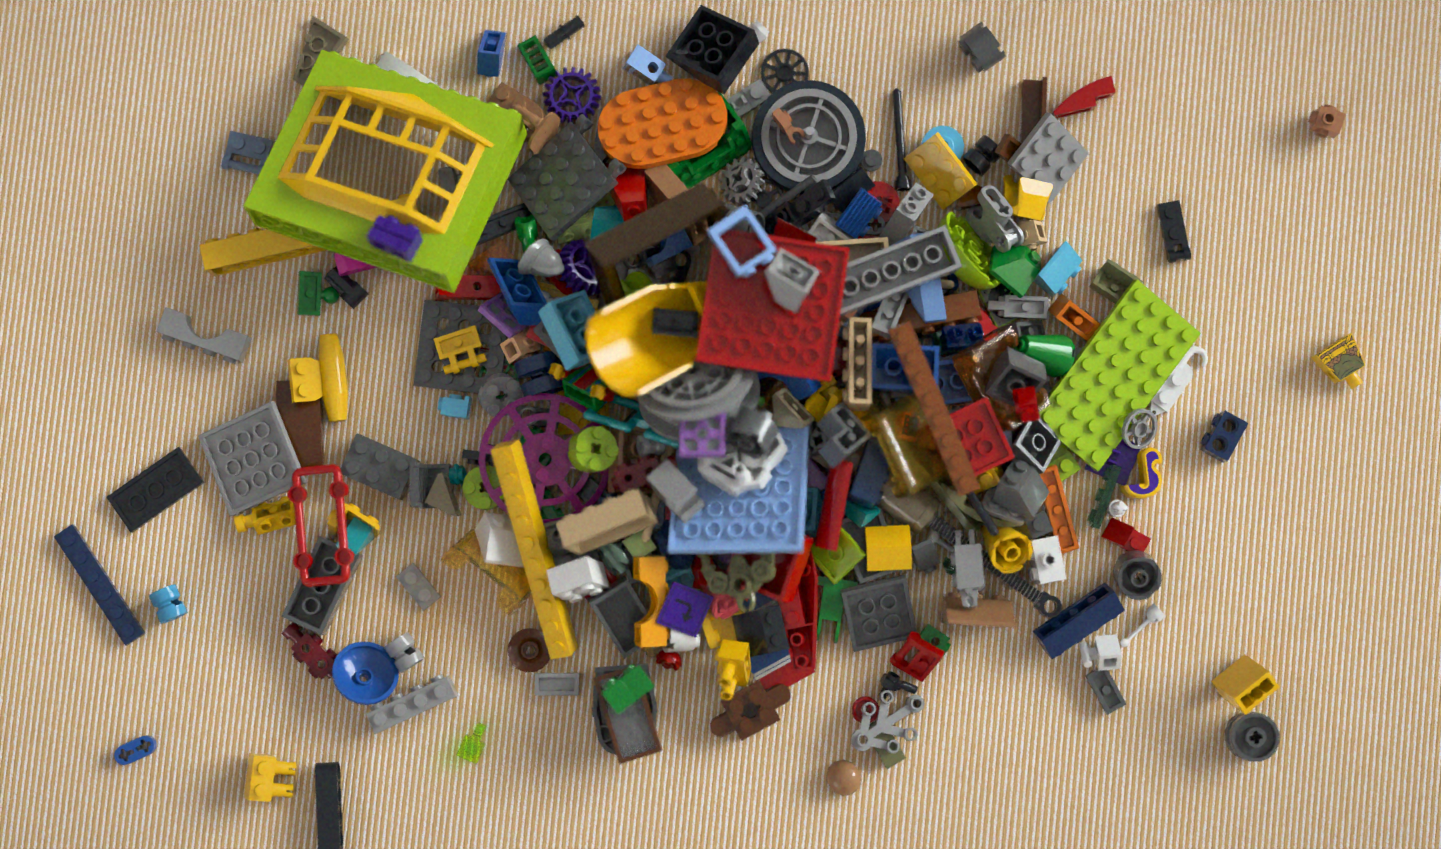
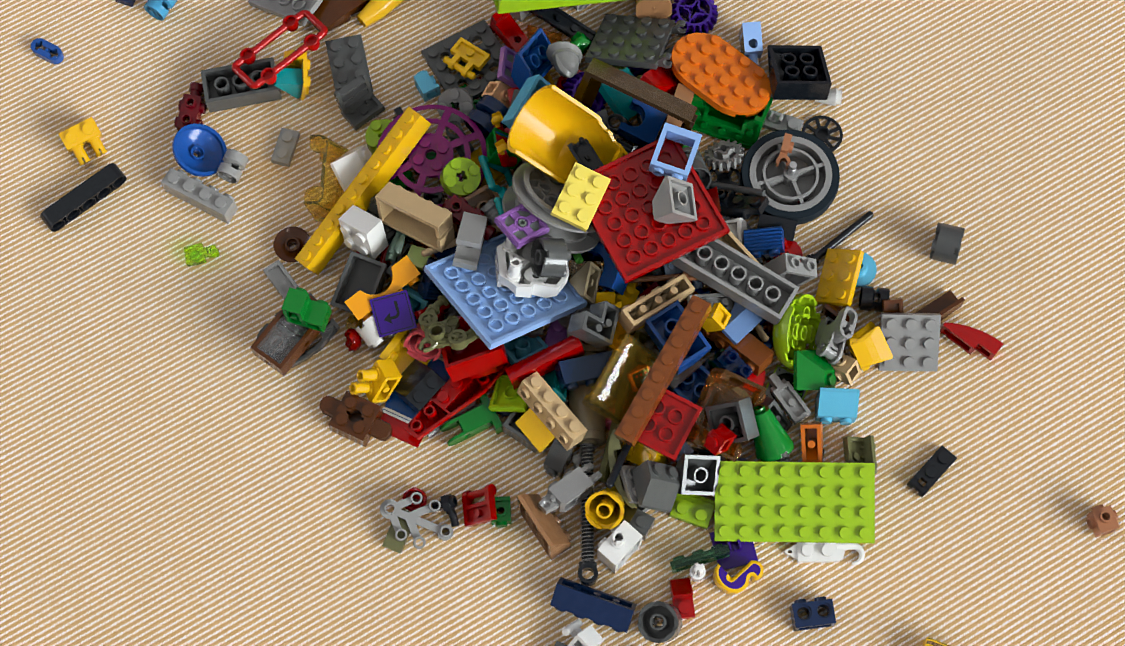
camera: 55 degrees right, 15 degrees down
(267, 517) = (260, 24): yellow brick -> none
(442, 495) = (358, 114): dark tan slope -> none
(457, 474) = (380, 114): teal plate -> none
(720, 362) = (580, 197): none -> light yellow plate
(843, 777) = (353, 520): medium nougat hair -> none
(871, 160) = (809, 230): dark grey plate -> none
(878, 612) = (491, 455): dark grey plate -> none
(887, 532) = (552, 411): none -> tan brick
(913, 314) = (717, 318): none -> yellow panel
(1058, 511) = (663, 531): orange tile -> none
(1139, 428) = (769, 547): light grey wheel -> none

